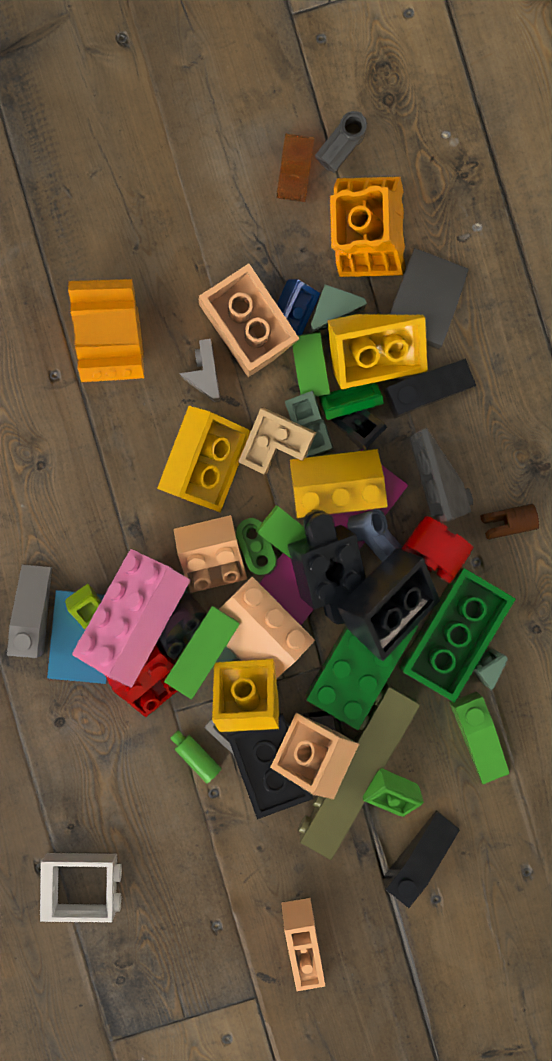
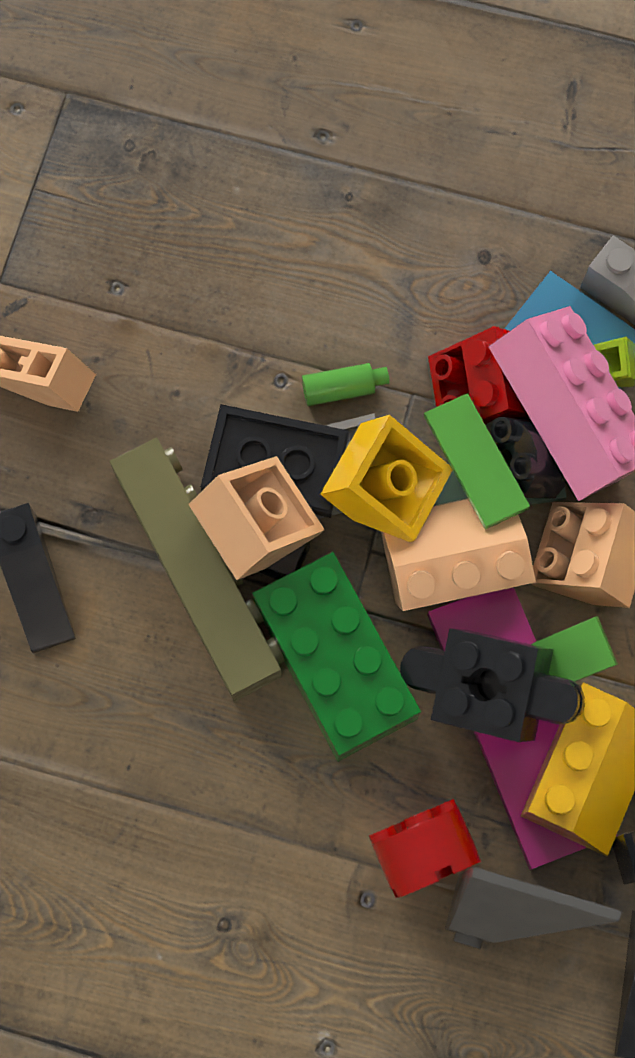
camera: 120 degrees right, 15 degrees down
(53, 912) = (291, 126): white window -> none
(255, 548) = (562, 610): bright green plate -> none
(372, 528) = (505, 777): sand blue piece -> none
(390, 602) = (397, 733): black slope -> none
(393, 793) = (138, 592): bright green slope -> none
(456, 634) = (295, 803): green brick -> none
(480, 736) = (133, 751): bright green slope -> none
(490, 667) = (225, 814): sand green slope -> none
(516, 521) = (394, 991): reddish brown hinge -> none

